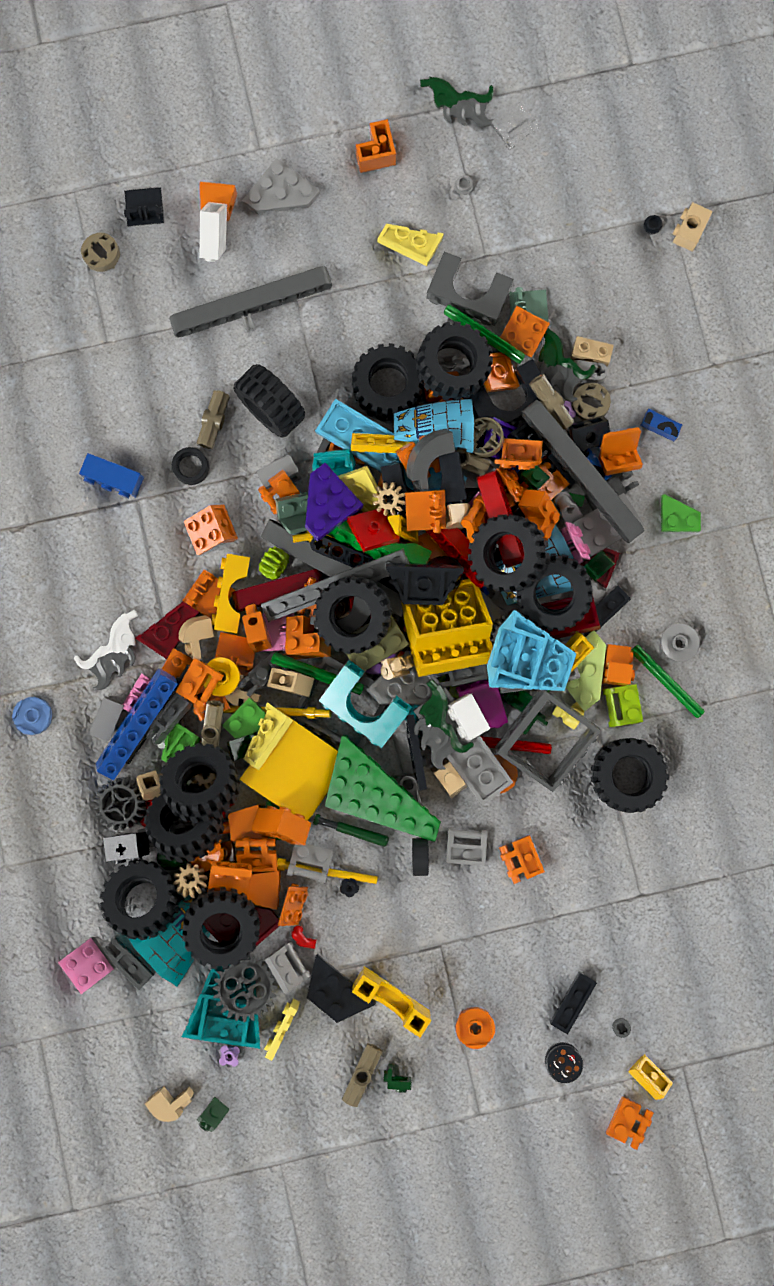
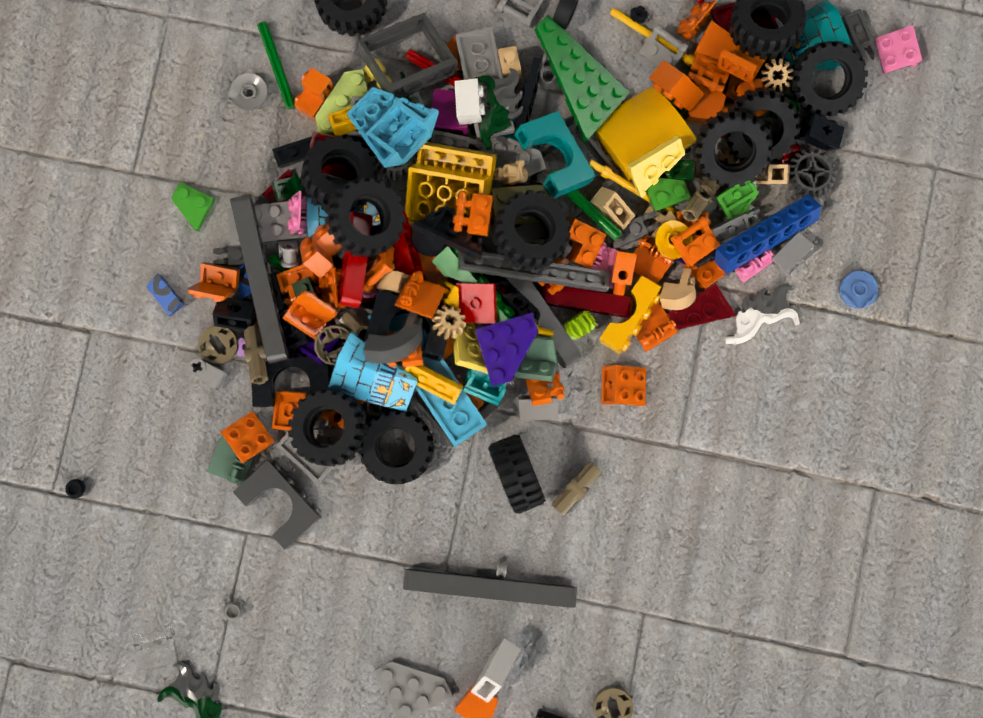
camera: 155 degrees left, 0 degrees up
(111, 476) = (695, 477): blue brick -> none
(187, 452) = (631, 453): black tyre -> none
(363, 834) = (598, 47): dark green piece -> none
(379, 151) = (296, 681): orange brick -> none
(406, 606) = (479, 214): none -> orange plate
(410, 243) = (310, 575): light yellow wing -> none
(492, 339) = (285, 452): green axle -> none
(561, 370) = (232, 386): piece -> none
(591, 351) = (195, 389): tan brick -> none
(628, 702) = (321, 57): lime plate -> none
(698, 218) = (29, 471): tan brick -> none

